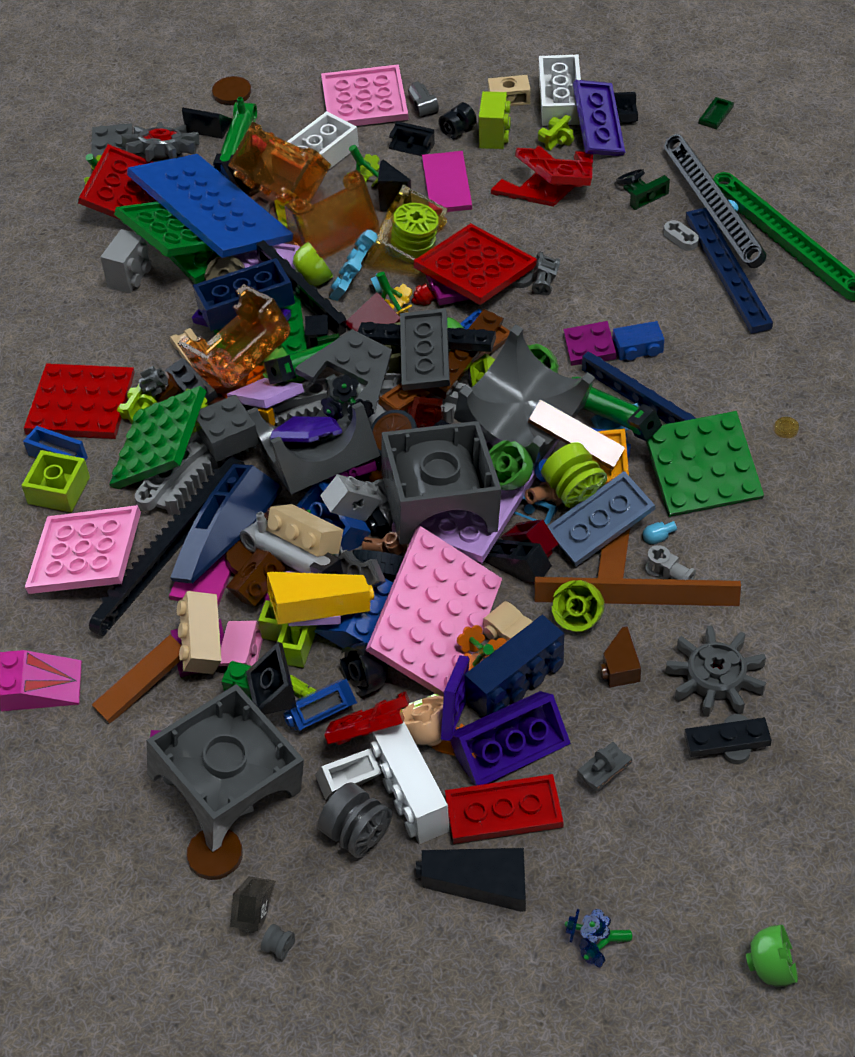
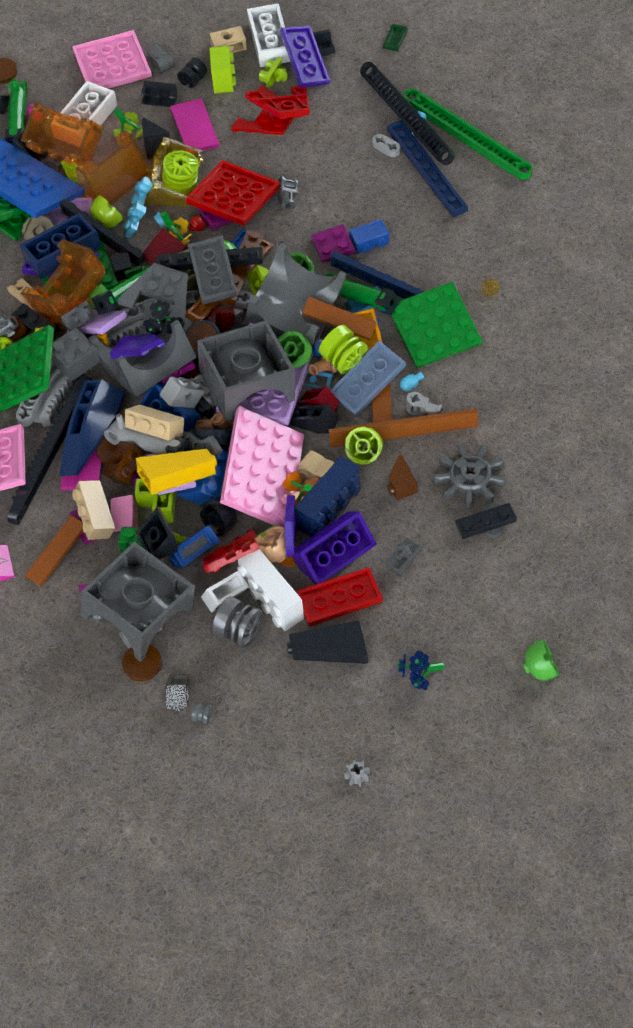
camera: 10 degrees left, 5 degrees up
(242, 382) = (77, 316): none -> dark grey hips
(641, 192) = (349, 114): dark green piece -> none

